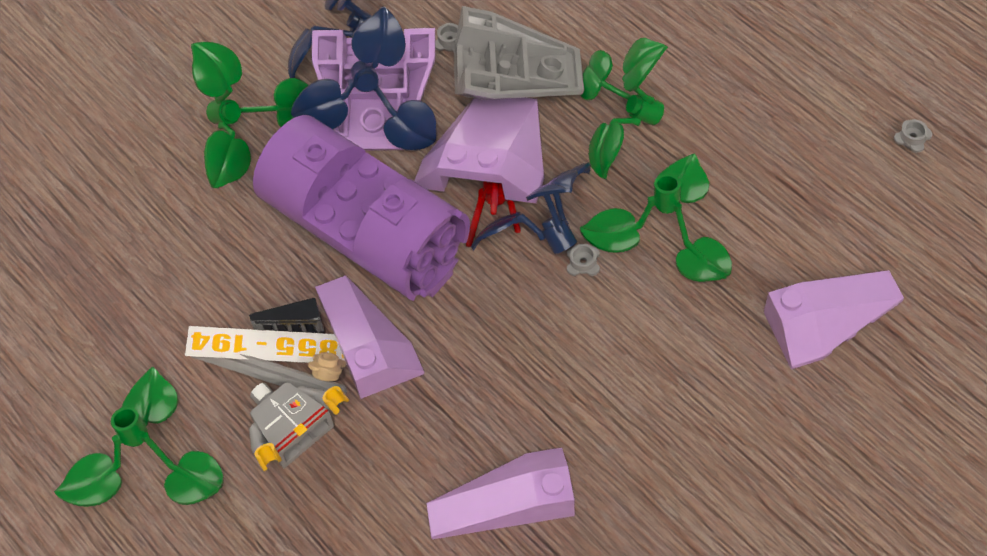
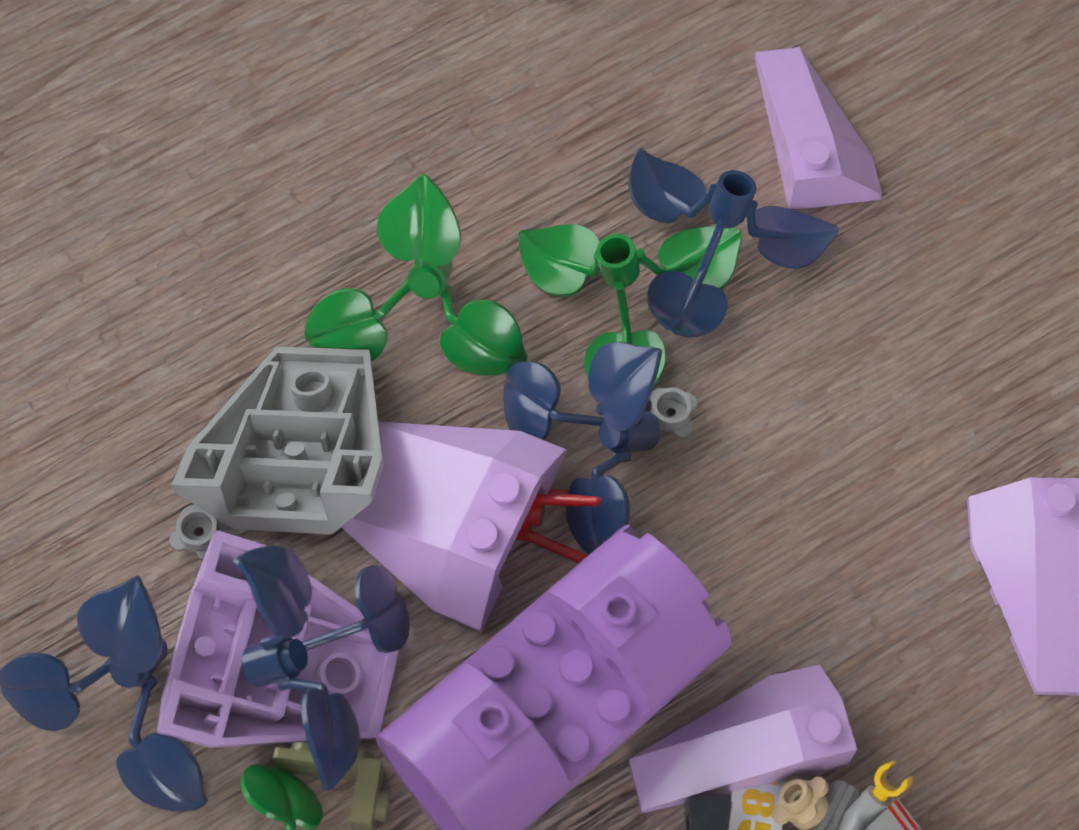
camera: 85 degrees left, 5 degrees up
(747, 232) = (668, 190): none -> dark blue plant

